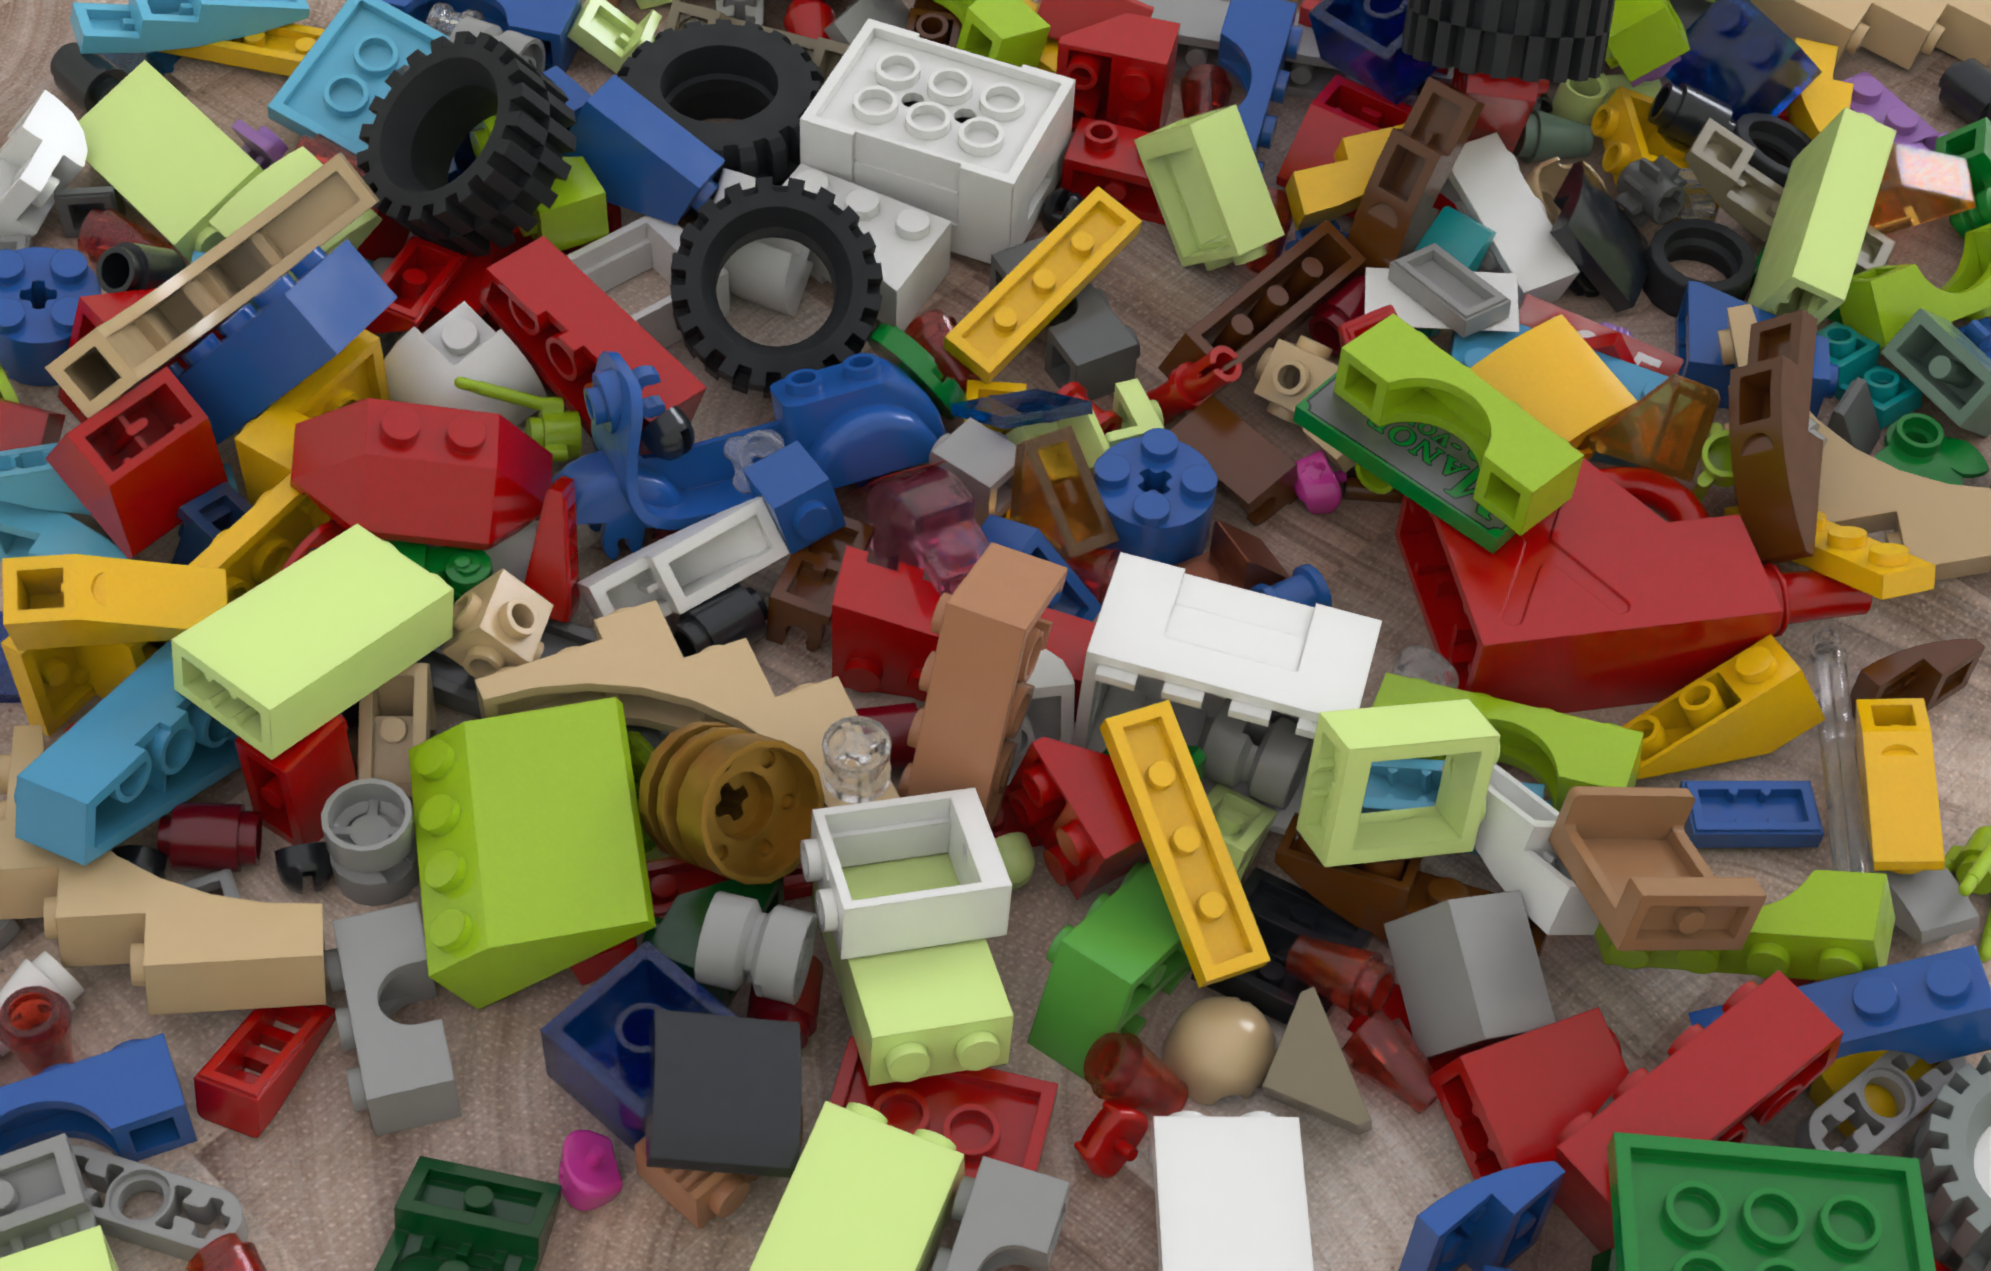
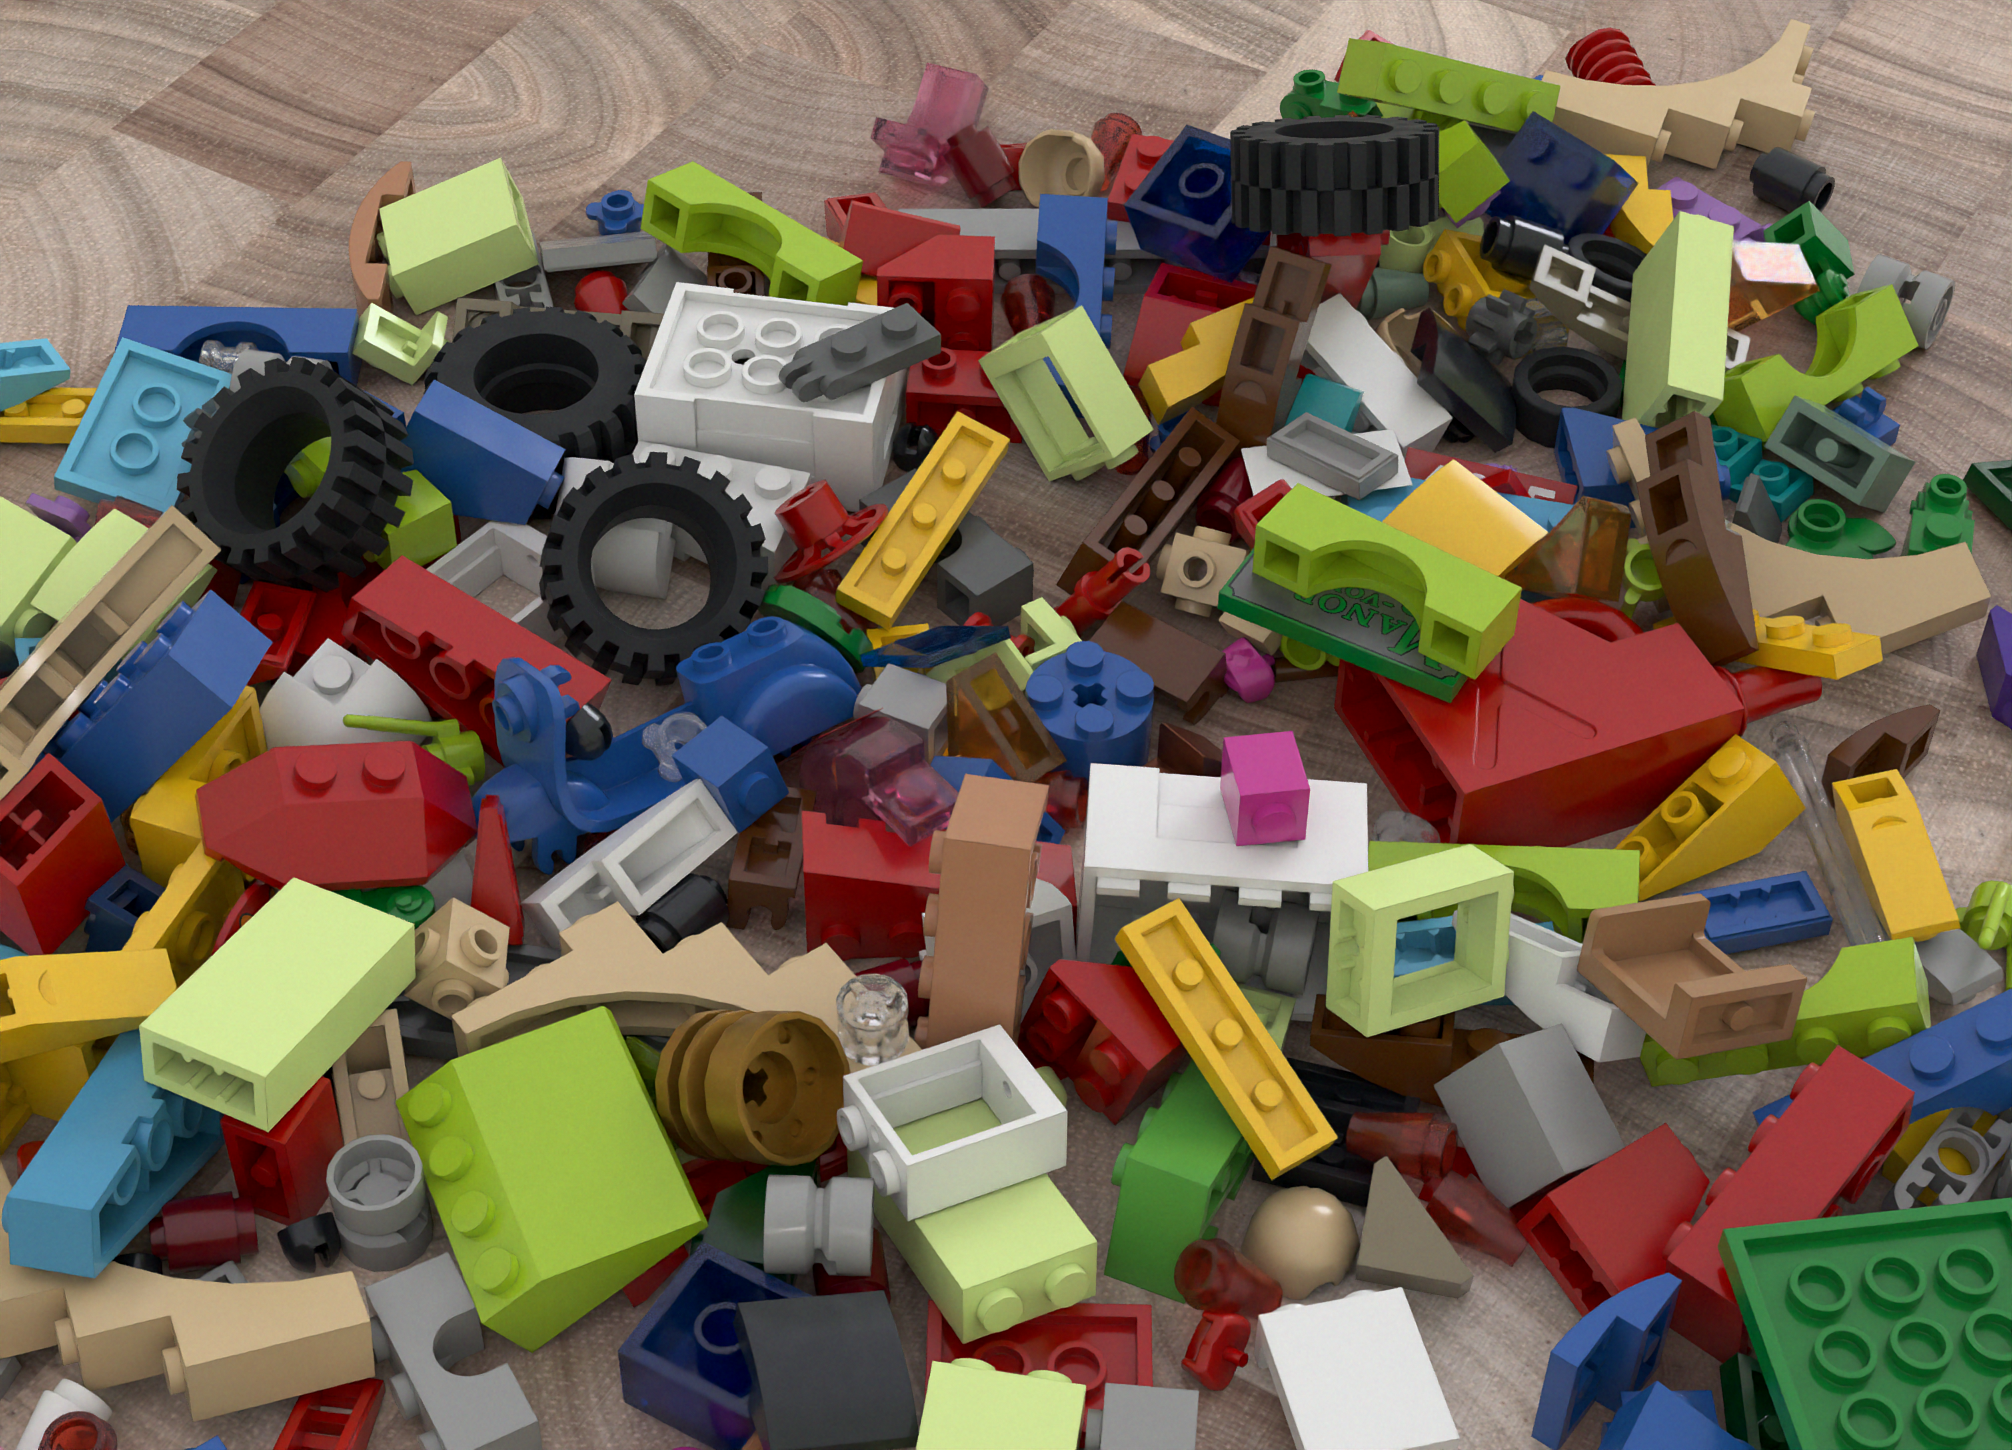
camera: 10 degrees left, 5 degrees down
(942, 270) = (818, 522): none -> red wheel
(1019, 116) = (861, 354): none -> dark grey hinge
(1277, 608) = (1264, 788): none -> dark pink brick

